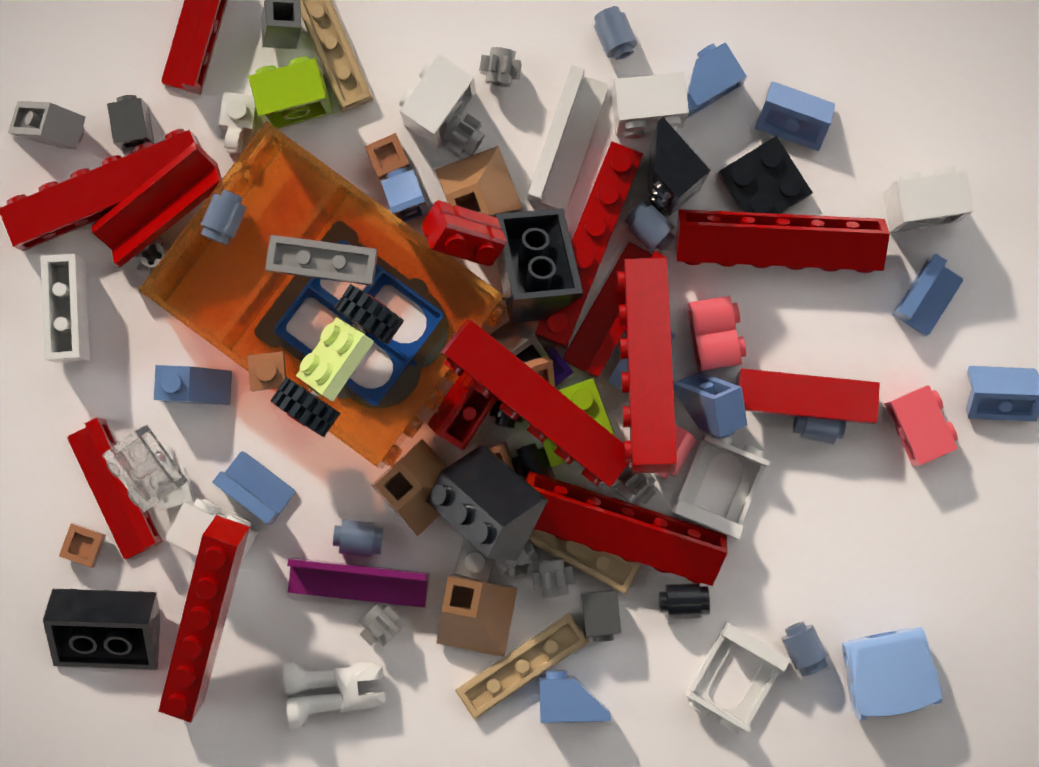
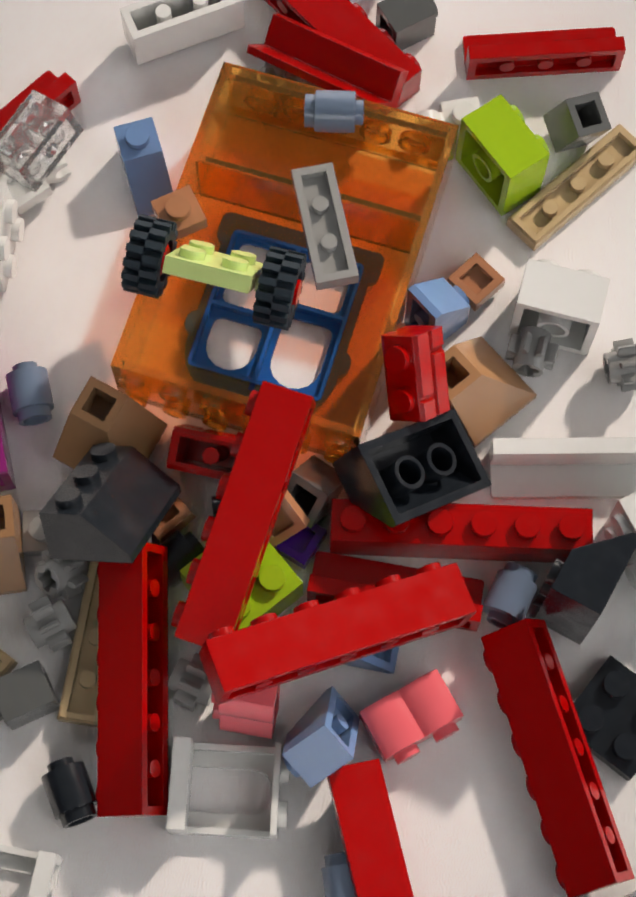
camera: 65 degrees right, 15 degrees down
(255, 487) = (51, 269): medium blue panel -> none

